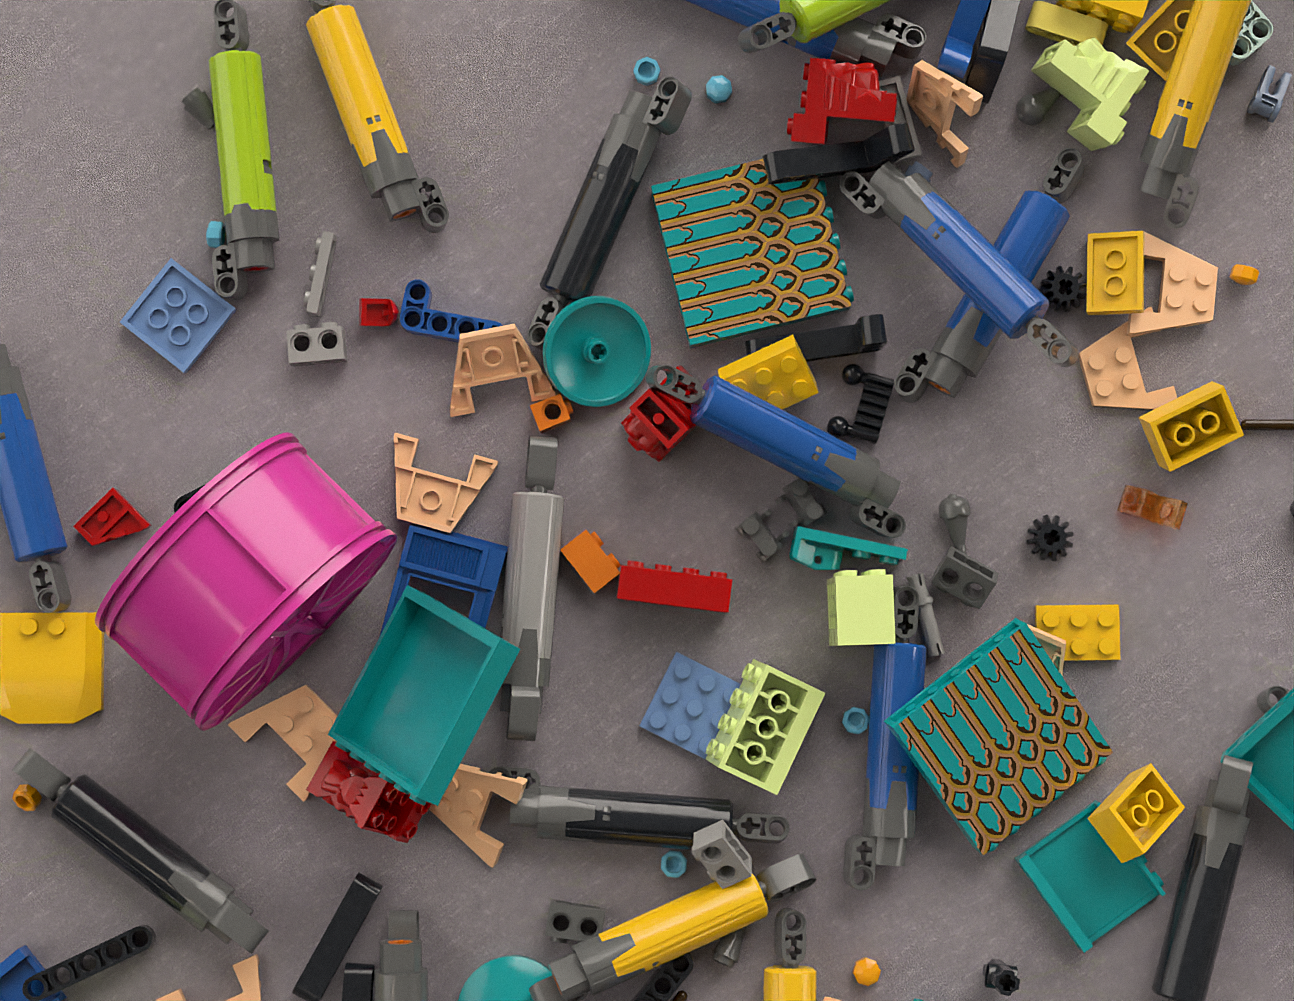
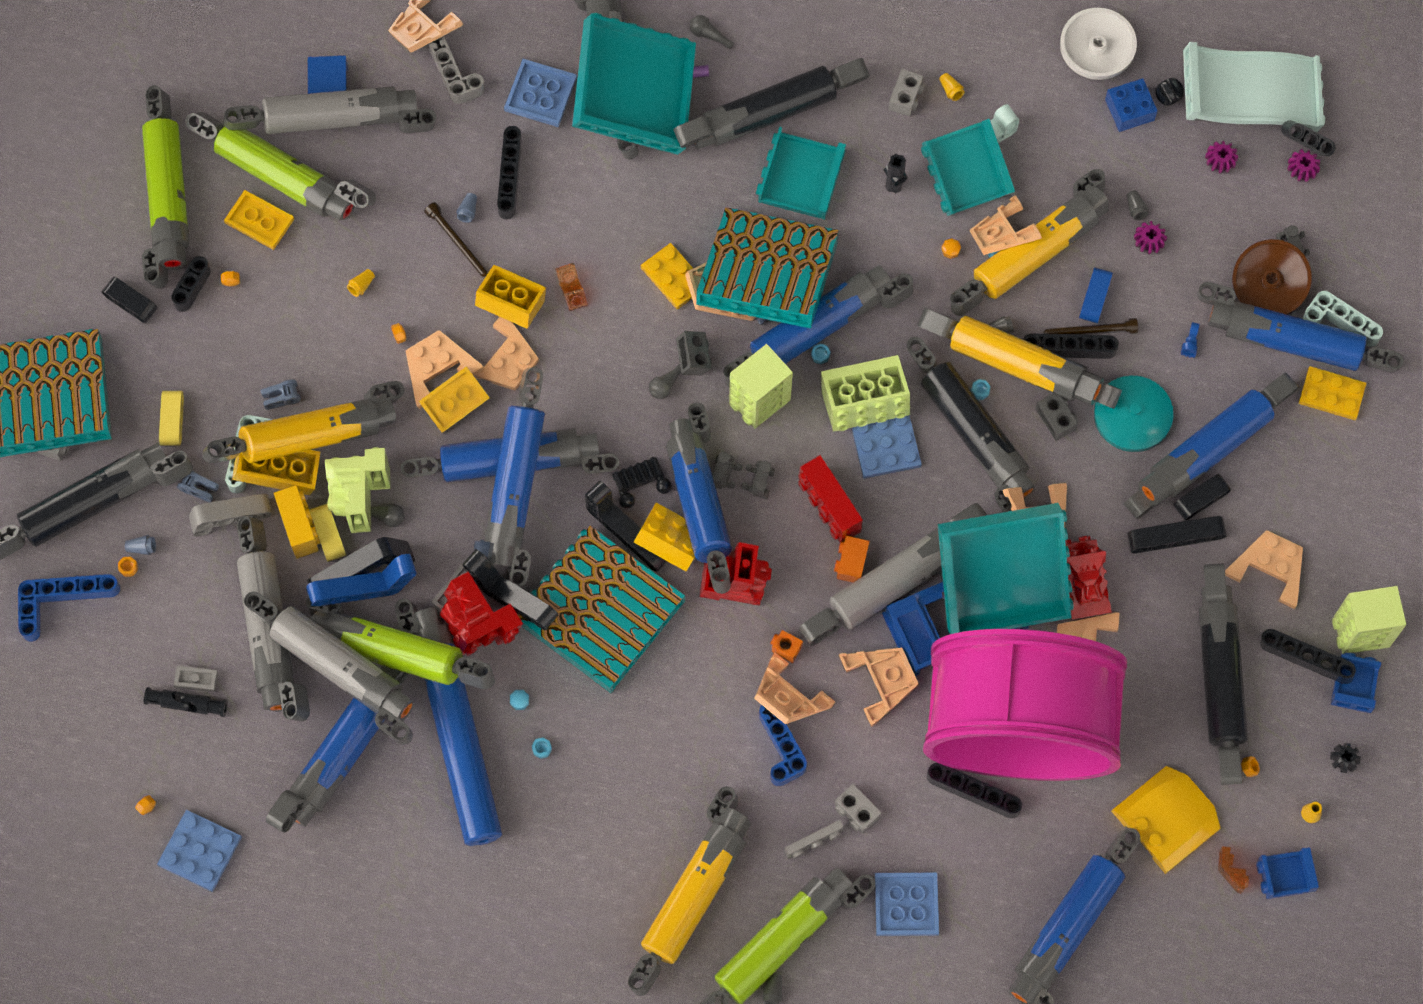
camera: 130 degrees left, 15 degrees down
(110, 519) = (1055, 847): red wing -> none
(215, 234) = (841, 920): medium azure tile -> none
(377, 312) = (809, 789): red plate -> none
(596, 351) = (731, 644): teal dish -> none
(606, 198) = (643, 706): piece -> none
(722, 854) = (954, 358): light grey brick -> none
(829, 547) = (740, 437): teal plate -> none
(926, 616) = (739, 349): light grey pin -> none
(934, 99) = (430, 563): light nougat wing -> none
(1054, 547) = (638, 321): black gear -> none
(1073, 291) = (490, 426): black gear -> none
(1136, 813) = (749, 170): yellow brick -> none

